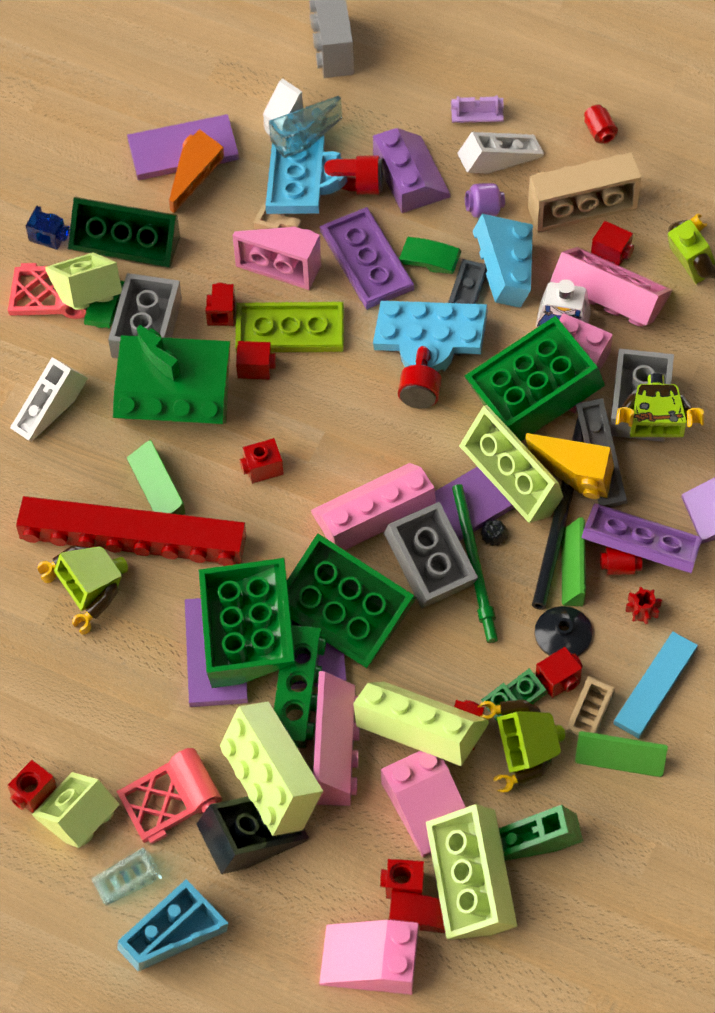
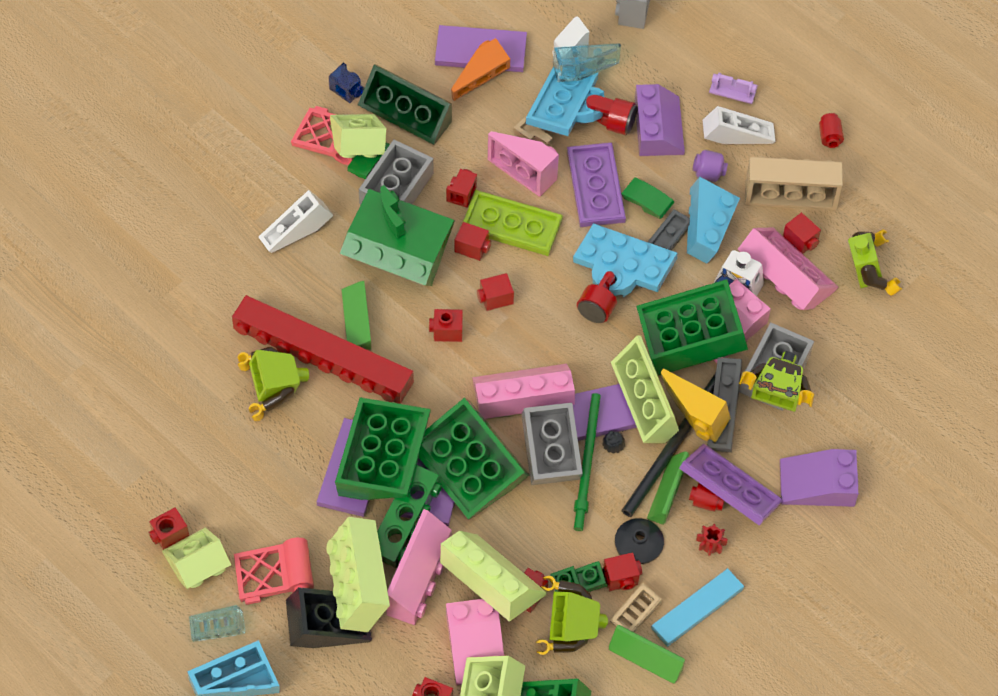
camera: 15 degrees right, 0 degrees up
(302, 407) = (496, 292): none -> red brick

